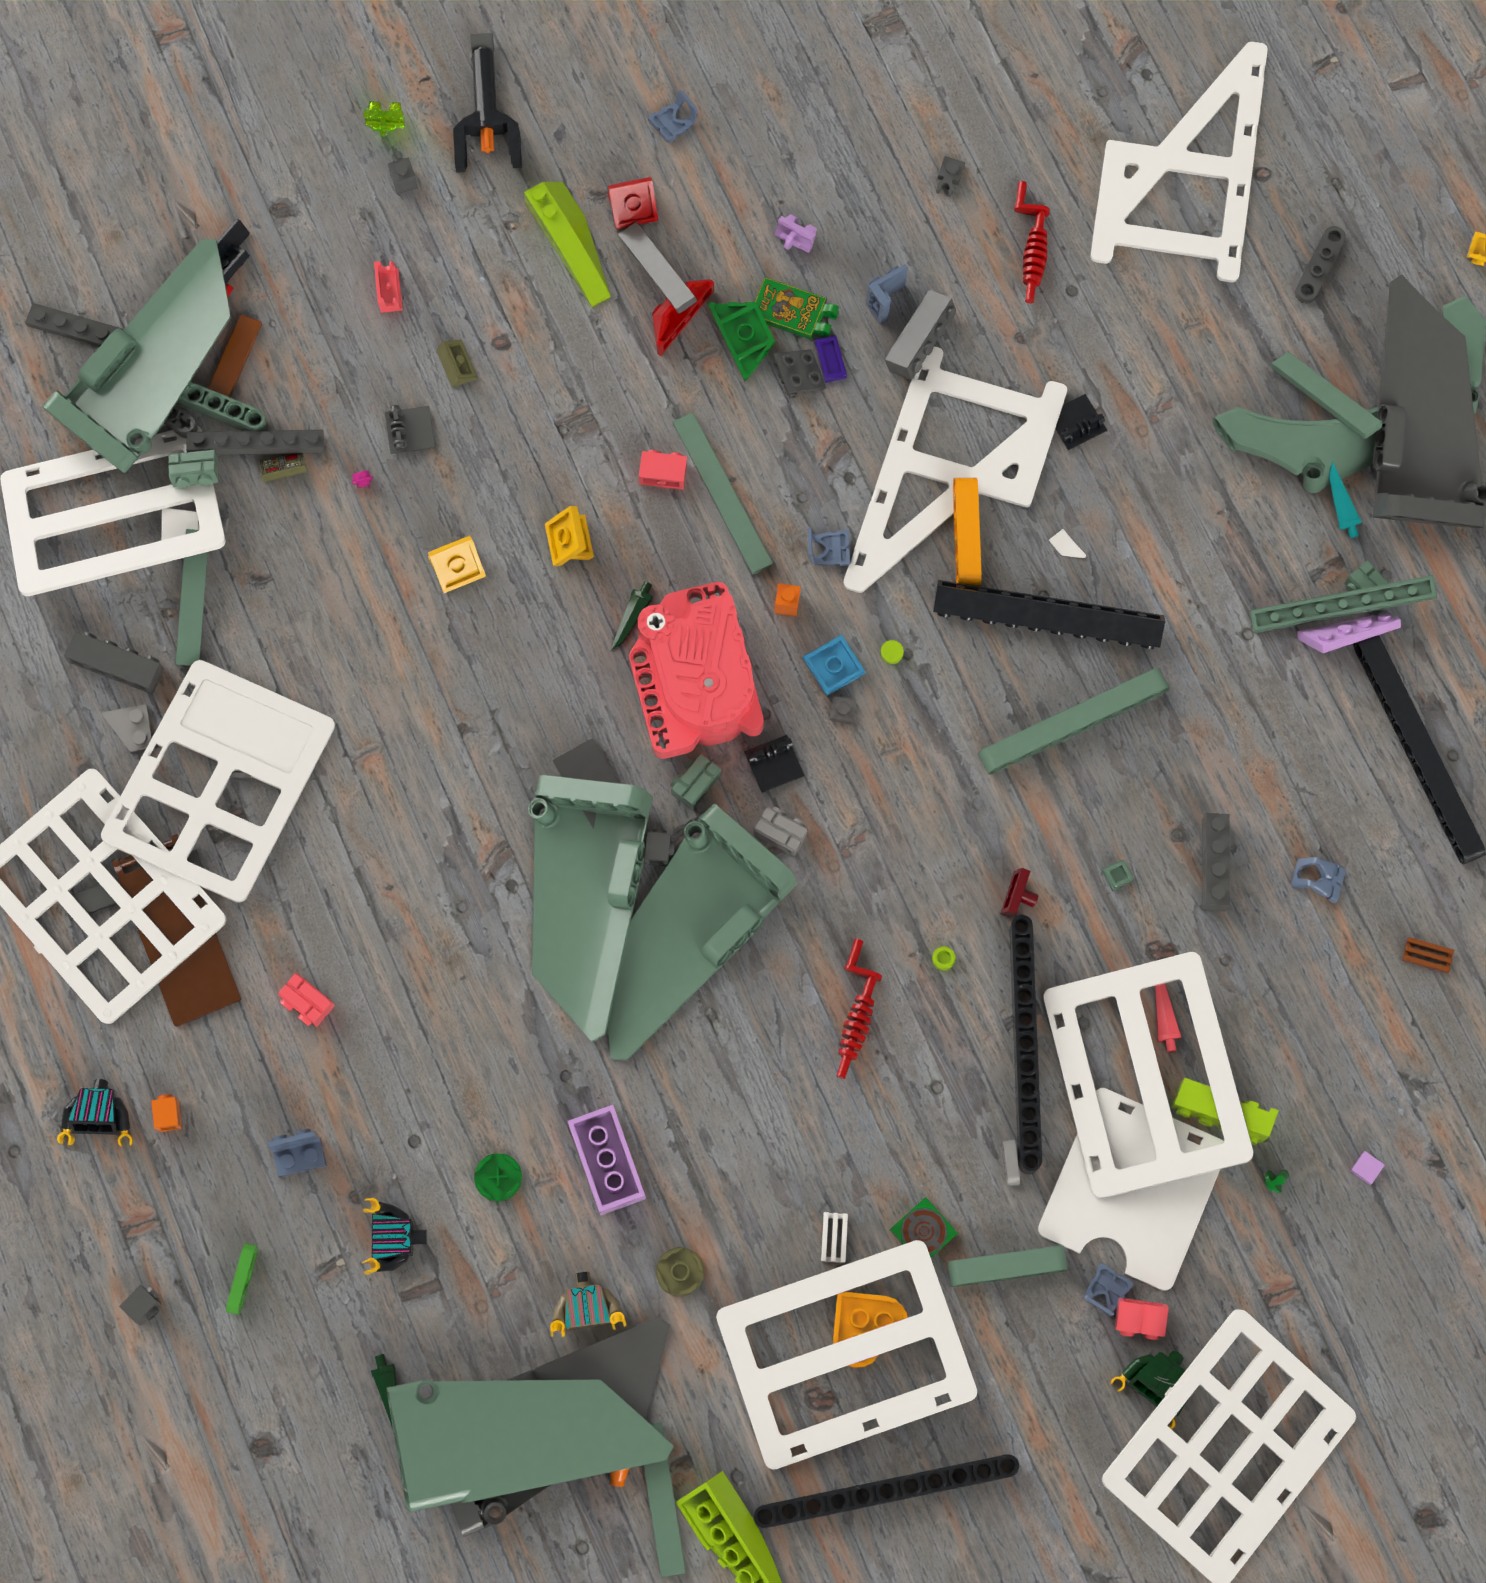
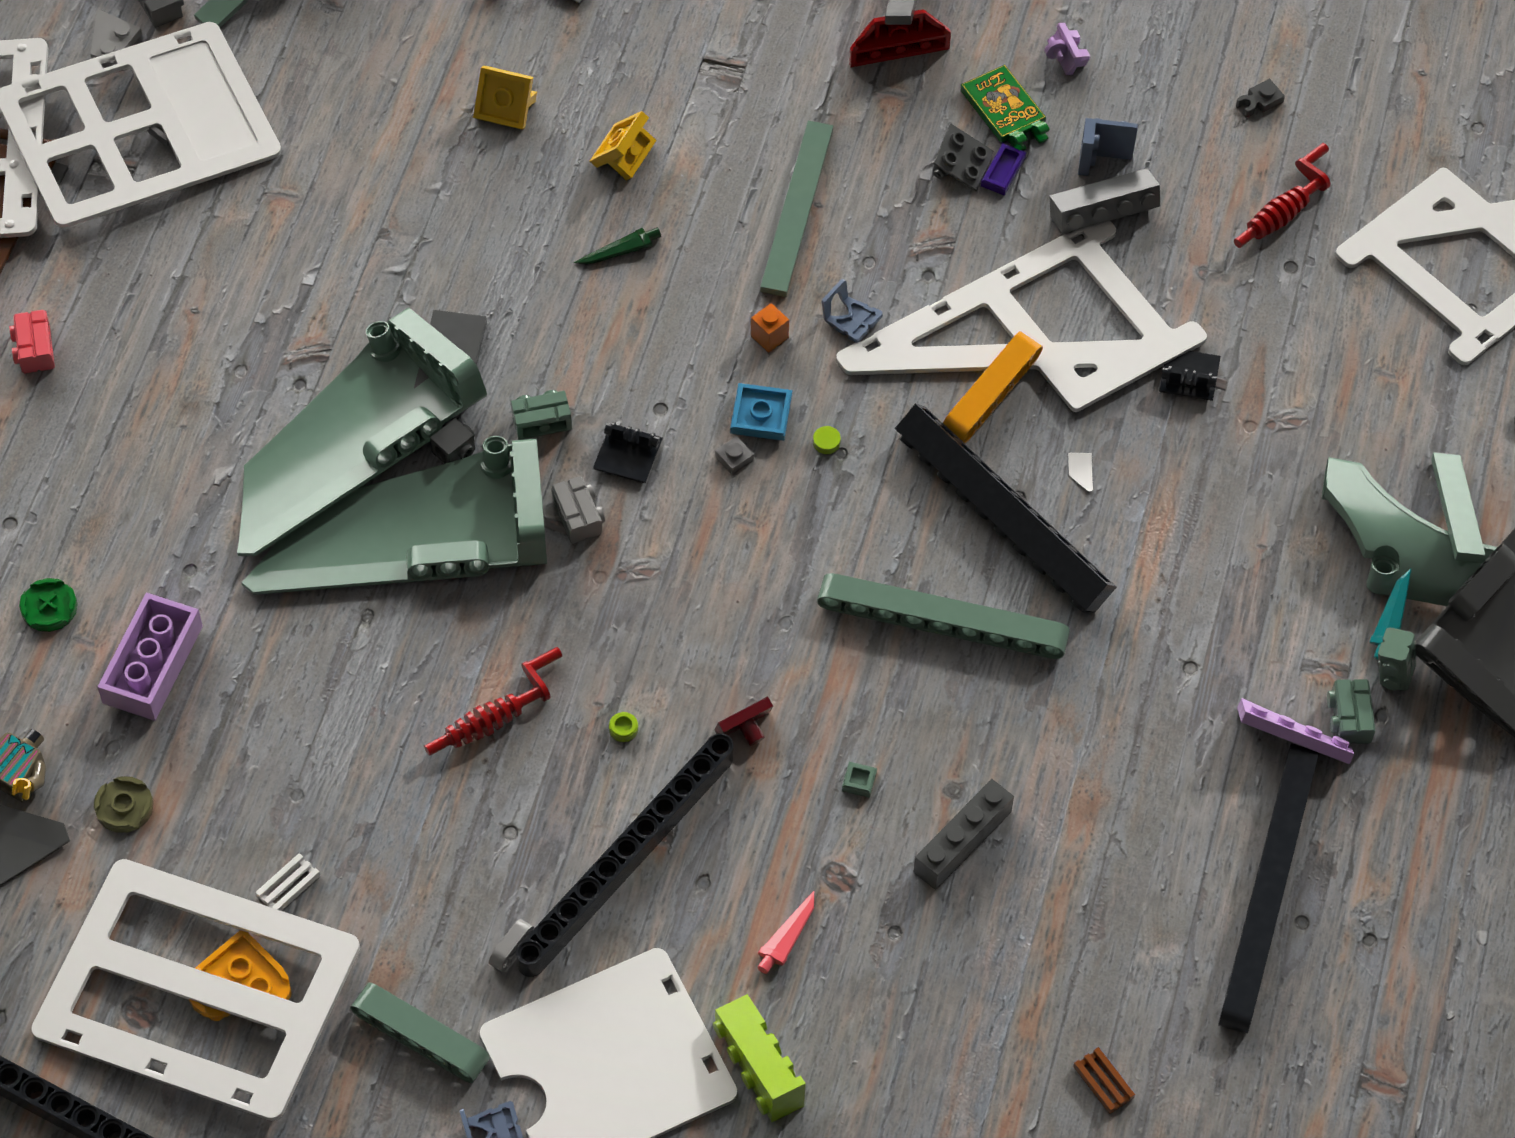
camera: 40 degrees right, 15 degrees down
(663, 469) = (760, 151): coral brick -> none
(695, 671) = (625, 318): coral piece -> none
(744, 333) = (940, 94): green wing -> none
(926, 1225) = (380, 942): tile -> none
(1170, 1161) = (661, 1055): white door -> none
(1329, 883) = (1064, 938): sand blue piece -> none
(1343, 604) = (1308, 701): sand green tile -> none
(1374, 533) = (1397, 659): none -> sand green brick

